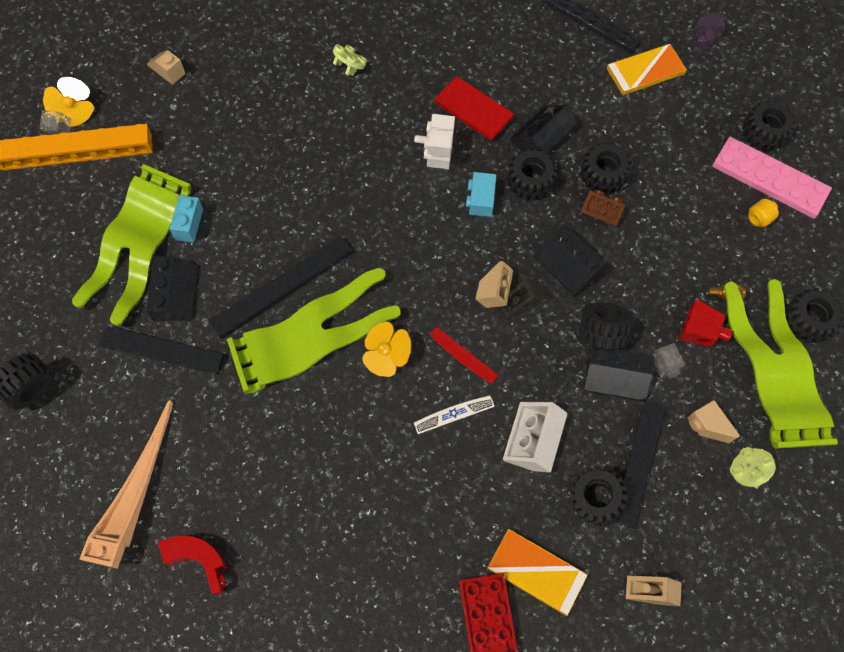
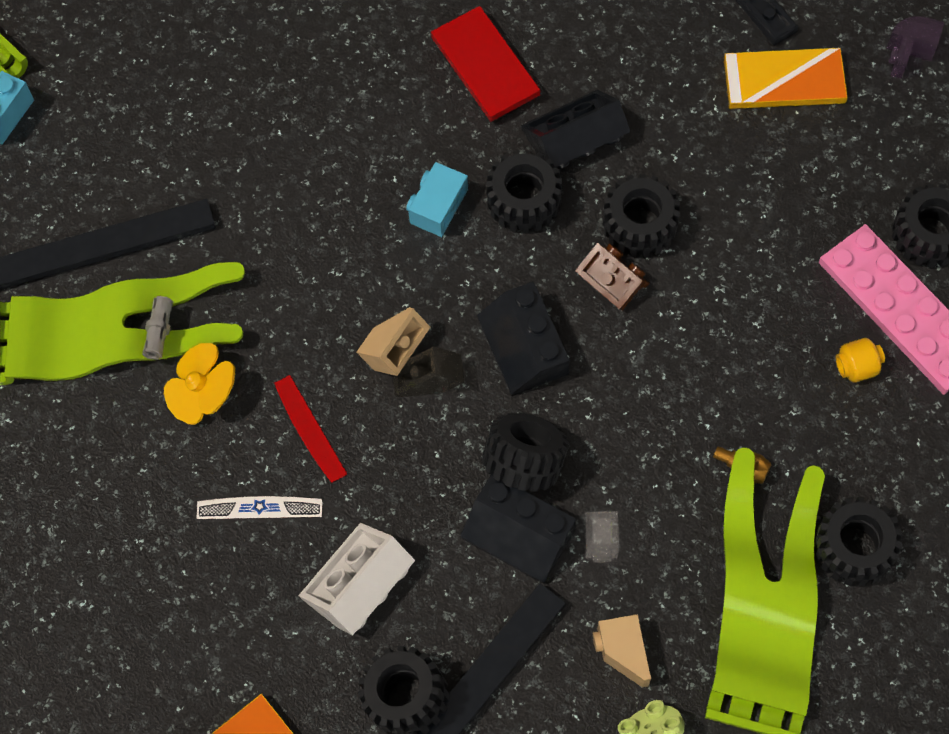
camera: 25 degrees right, 0 degrees up
(346, 323) = (157, 328): none -> light grey pin
(438, 141) = (405, 100): white brick -> none
(704, 325) = (681, 501): red torso -> none

